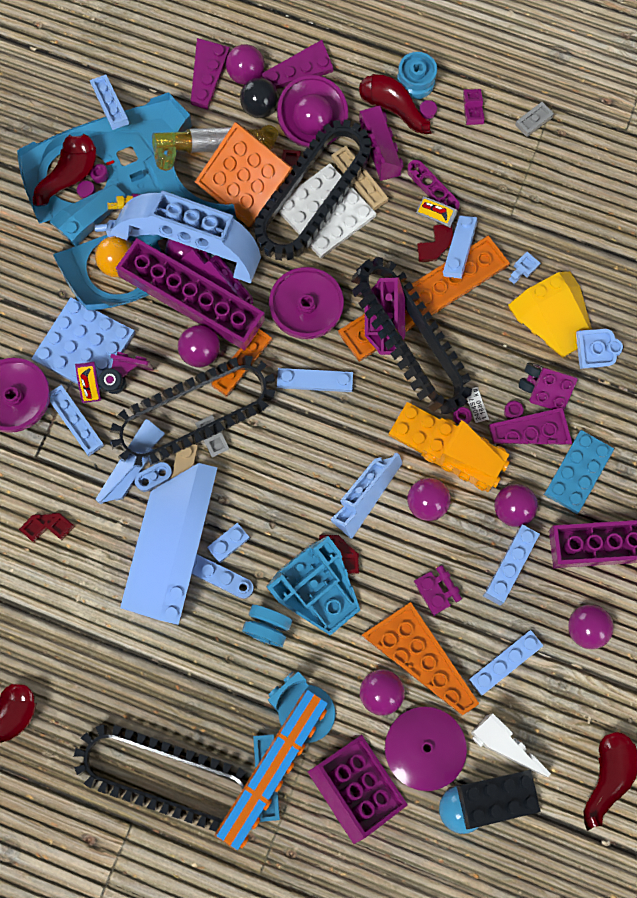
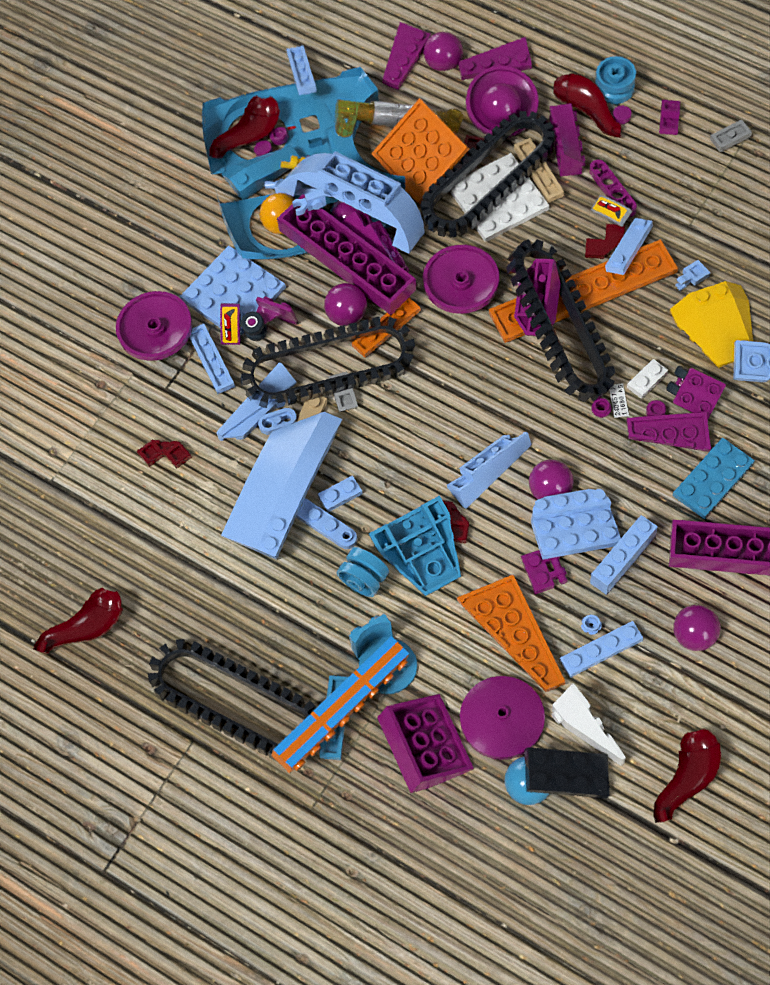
camera: 20 degrees right, 10 degrees down
(148, 246) = (312, 201): none -> light blue plate
(259, 97) = (451, 83): black piece -> none
(314, 380) = (456, 354): light blue plate -> none
(382, 692) = (467, 656): magenta piece -> none
(451, 446) = (584, 434): light orange wedge -> none
(459, 540) = (574, 523): none -> light blue plate
(497, 639) = (588, 620): none -> light blue plate
(500, 379) = (647, 378): none -> white plate
(516, 505) = (640, 498): magenta piece -> none

